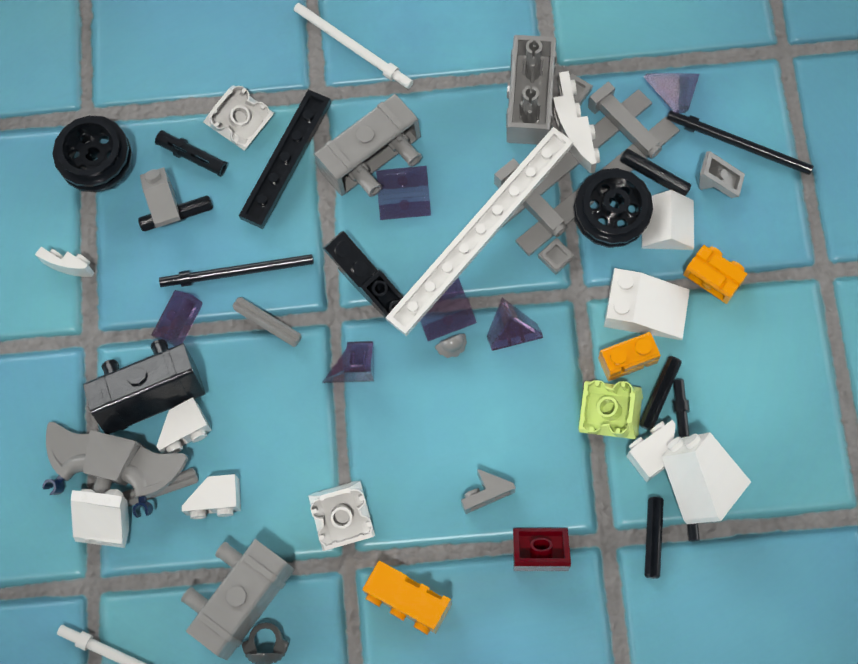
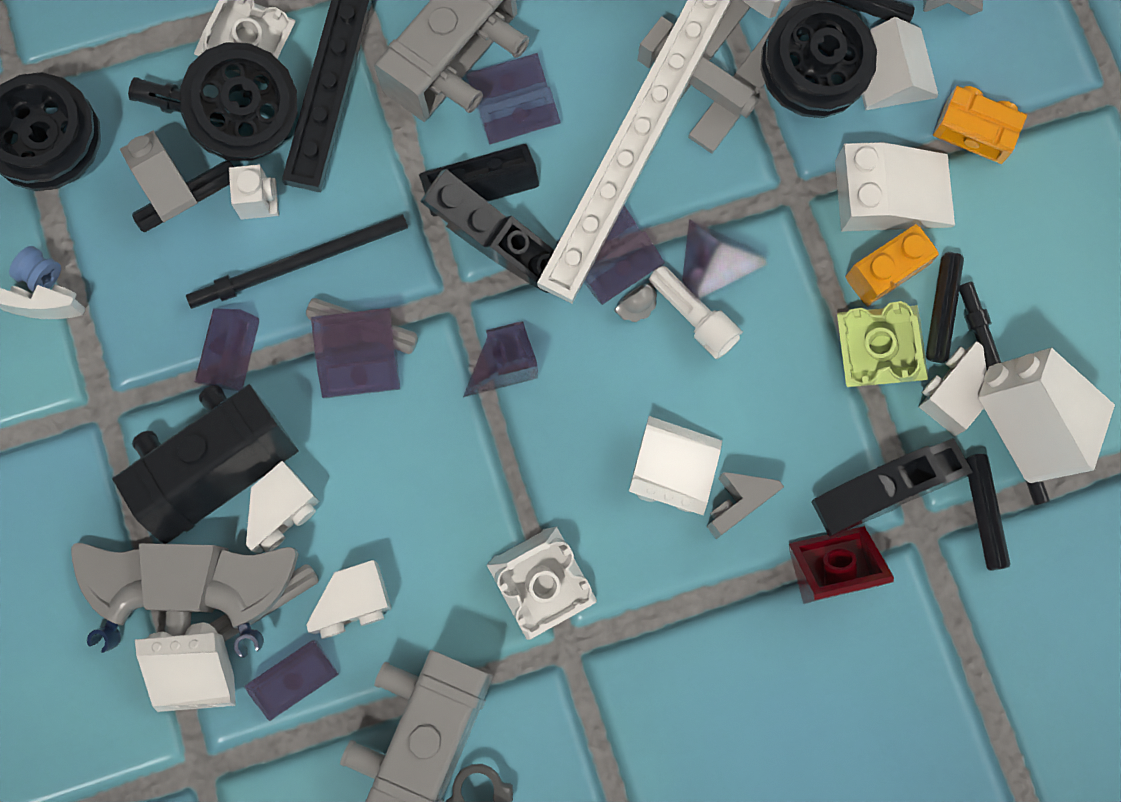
camera: 25 degrees left, 5 degrees up
(68, 240) = (34, 269): none -> medium blue wheel
(164, 540) = (291, 680): none -> clear purple slope
(195, 159) = (252, 63): none -> black wheel
(218, 220) = (252, 192): none -> white brick
(258, 338) = (355, 353): none -> clear purple slope
(377, 240) = (492, 174): none -> black slope
(406, 598) = (670, 681): light orange wedge -> none
(448, 458) = (675, 466): none -> white slope
(496, 372) = (712, 328): none -> white piece
(556, 256) = (751, 145): light grey tile -> none
(590, 503) = (891, 486): none -> black slope

